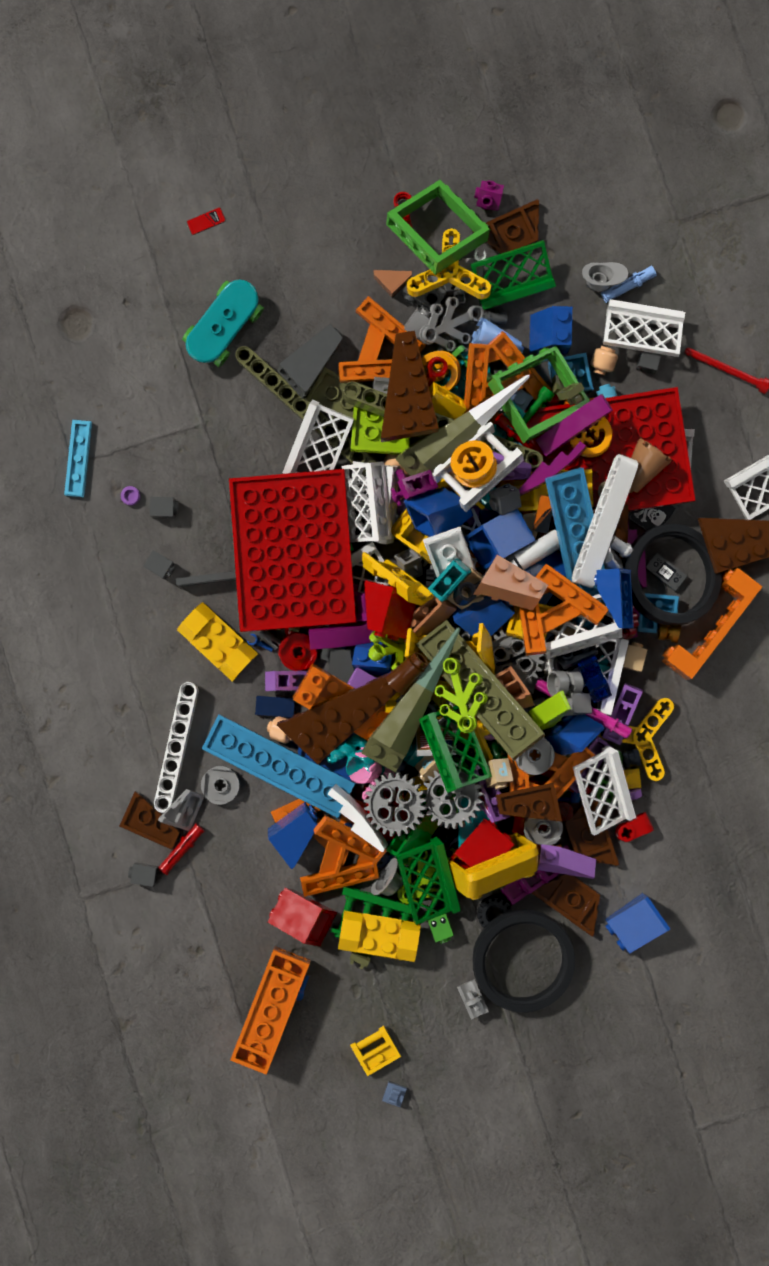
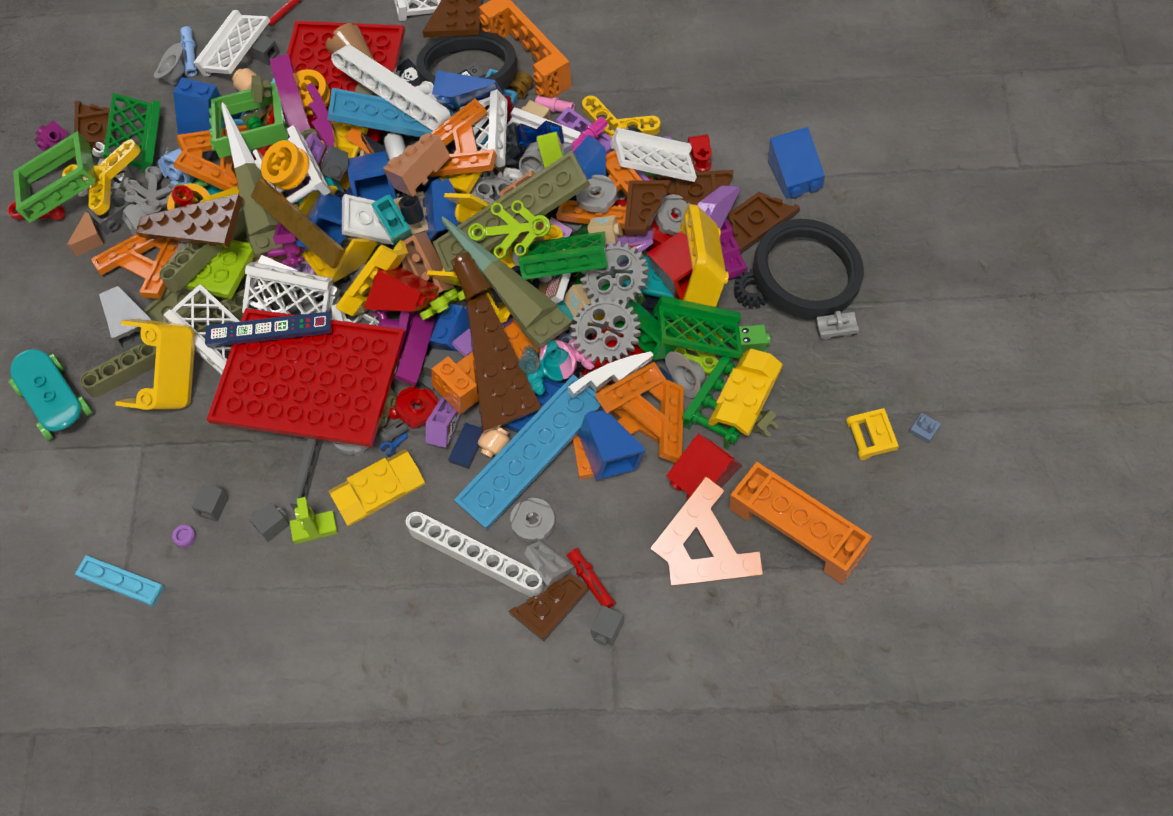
camera: 70 degrees left, 25 degrees down
(166, 602) = (311, 526): none -> lime bracket
(254, 924) = (725, 561): none -> plate
(285, 423) = (172, 365): none -> yellow windscreen
(325, 500) = (268, 329): none -> dark blue tile
(353, 743) = (529, 360): none -> clear light blue cone
(417, 497) = (297, 223): none -> pearl gold tile
(654, 671) = (554, 104): none -> bright pink pin

